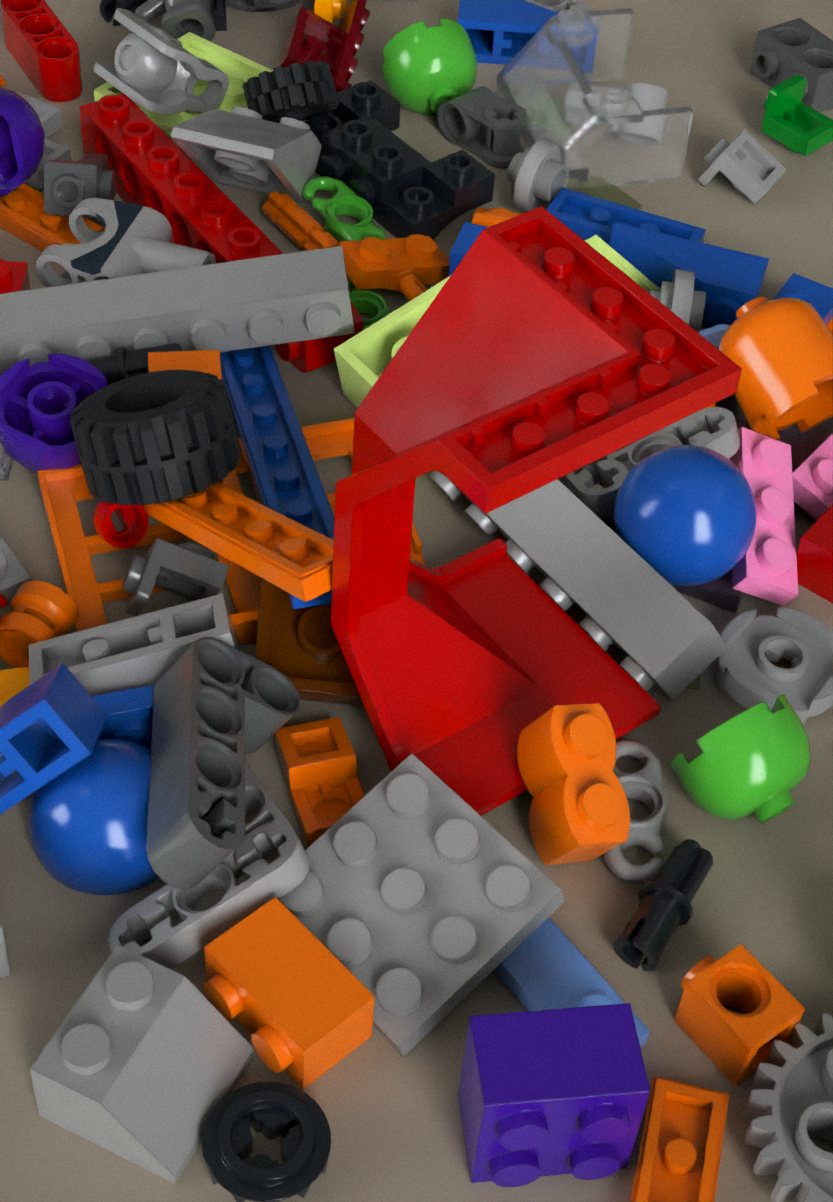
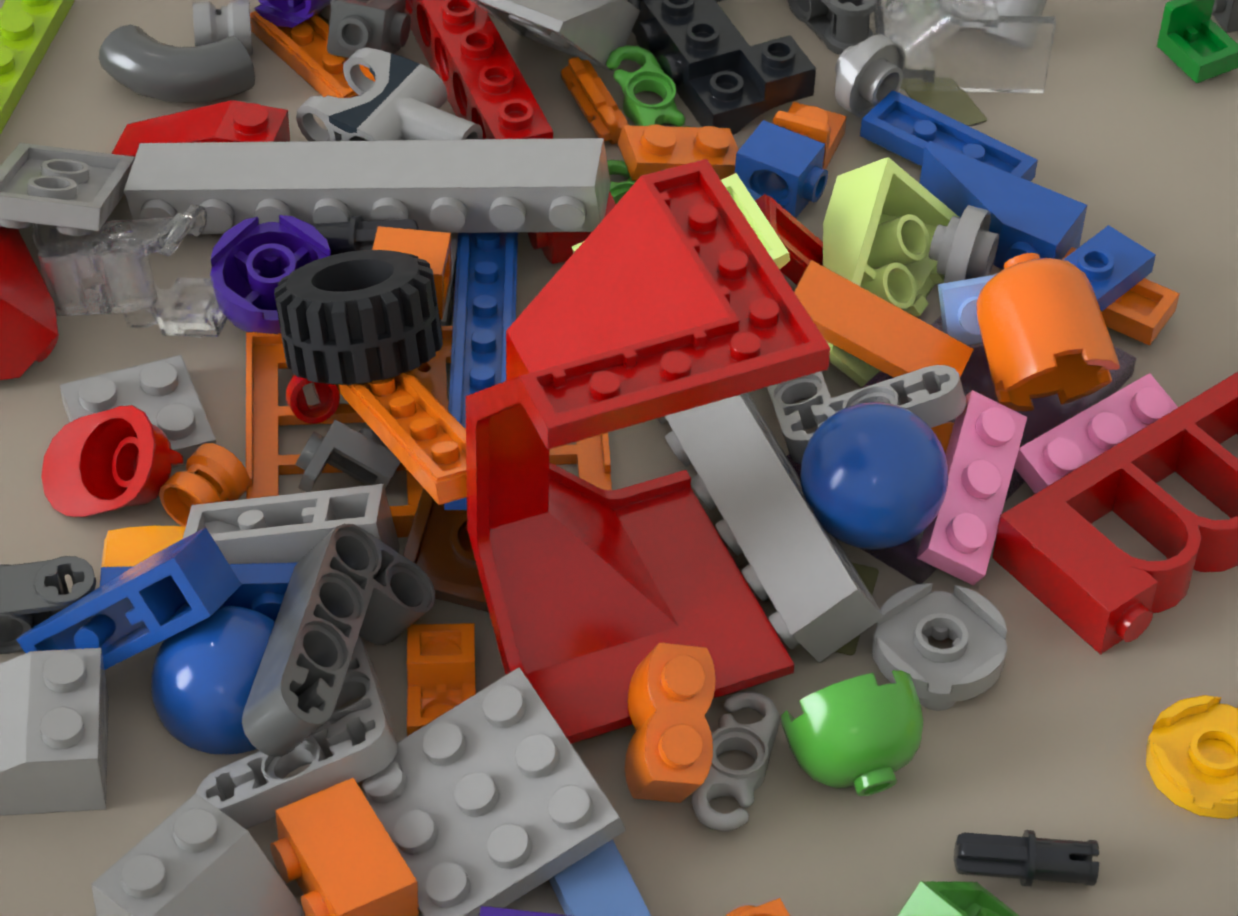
camera: 15 degrees right, 0 degrees up
(664, 905) = (731, 854): black axle -> none
(745, 165) = (1114, 88): light grey bracket -> none

